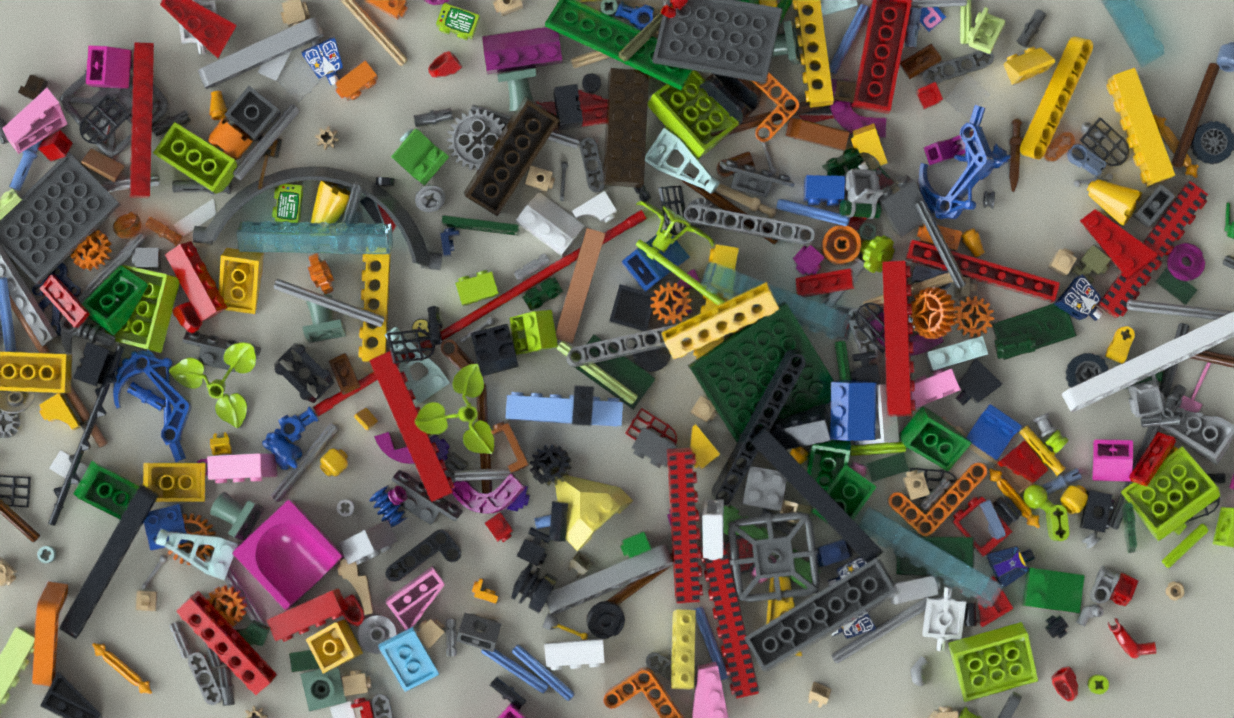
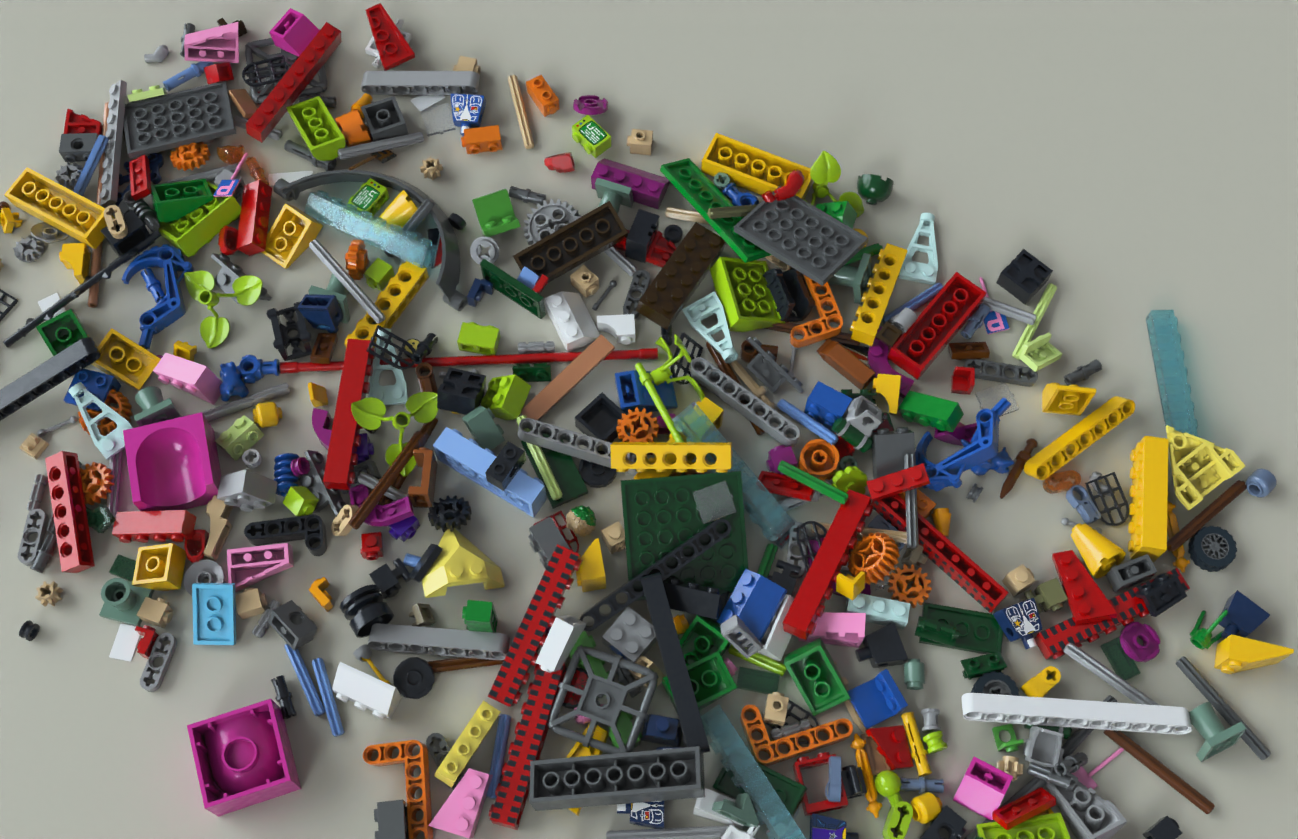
camera: 30 degrees right, 20 degrees down
(86, 360) = (119, 220): none -> tan beam
(155, 266) = (227, 187): none -> bright pink piece
(322, 495) = (239, 437): none -> yellowish green bracket
(323, 344) = (321, 312): none -> dark blue torso
(347, 274) = (379, 274): none -> lime brick
(417, 525) = (300, 501): none -> lime brick
(463, 519) = (340, 525): none -> tan beam
(483, 466) = (386, 481): none -> reddish brown axle
(492, 211) = (528, 277): none -> medium blue slope
(507, 211) = (541, 284): none -> red tile
(534, 374) = (483, 428): none -> sand green brick
(666, 411) = (581, 520): none -> piece
(777, 341) = (714, 502): none -> clear piece
(848, 272) = (813, 482): none -> green axle
(849, 70) = (904, 319): none -> light grey piece
(855, 443) = (731, 628): none -> light grey slope
(916, 146) = (931, 411): none -> green brick
(922, 235) = (898, 482): none -> red plate
(926, 348) = (849, 585): none -> yellow panel
(931, 586) = (740, 811): none -> sand green slope
(1013, 392) = (914, 674): none -> sand green brick
(1066, 353) = (987, 663): none -> dark green hinge
(1119, 409) = (1010, 746): none -> bright green bracket
(1126, 430) = (1010, 766): none -> tan gear
(1170, 75) = (1198, 466): none -> light yellow wedge
(1186, 214) = (1161, 593): none -> black bracket

